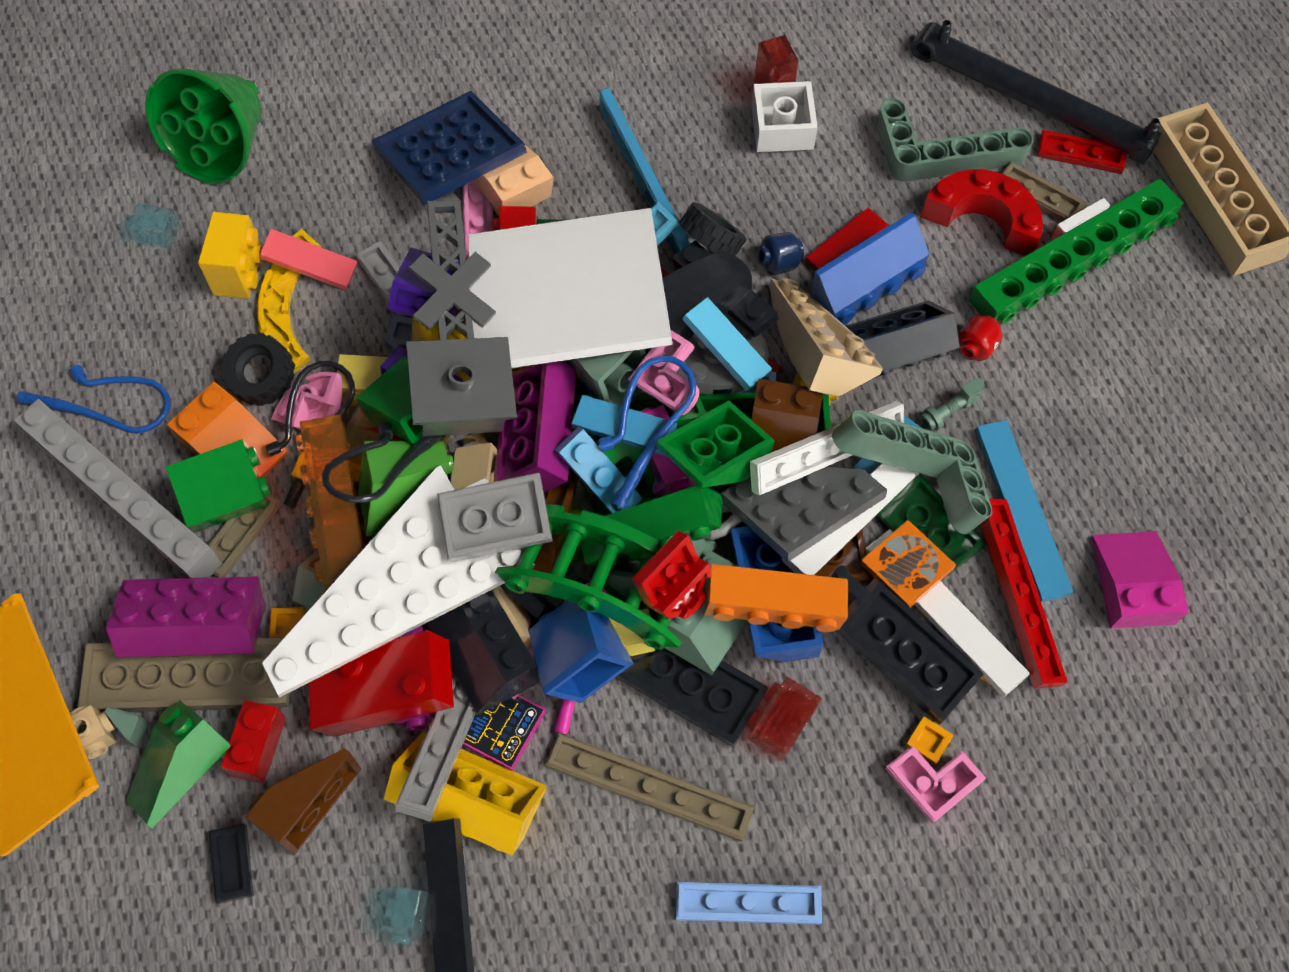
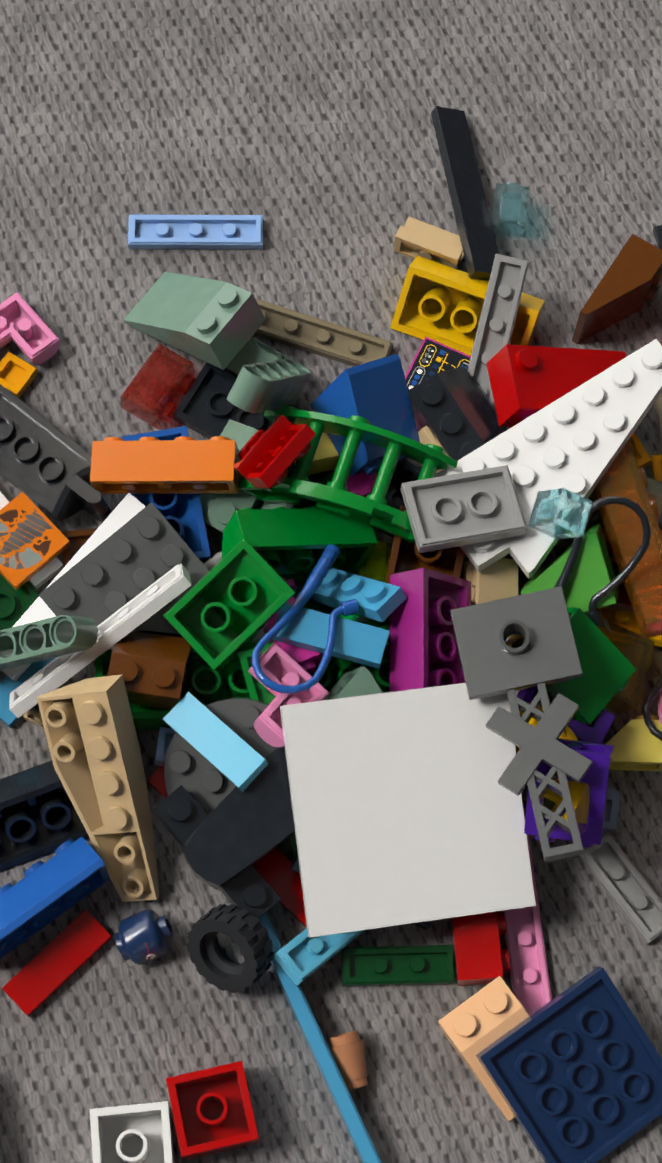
camera: 175 degrees right, 5 degrees up
(404, 495) = (560, 513): none -> clear light blue brick
(497, 879) = (428, 242): none -> tan panel
(622, 174) = (350, 1058): none -> nougat cone
(657, 713) = (265, 378): none -> sand green beam
(726, 136) = (212, 1110): none -> red brick
(750, 778) = (198, 316): none -> sand green slope

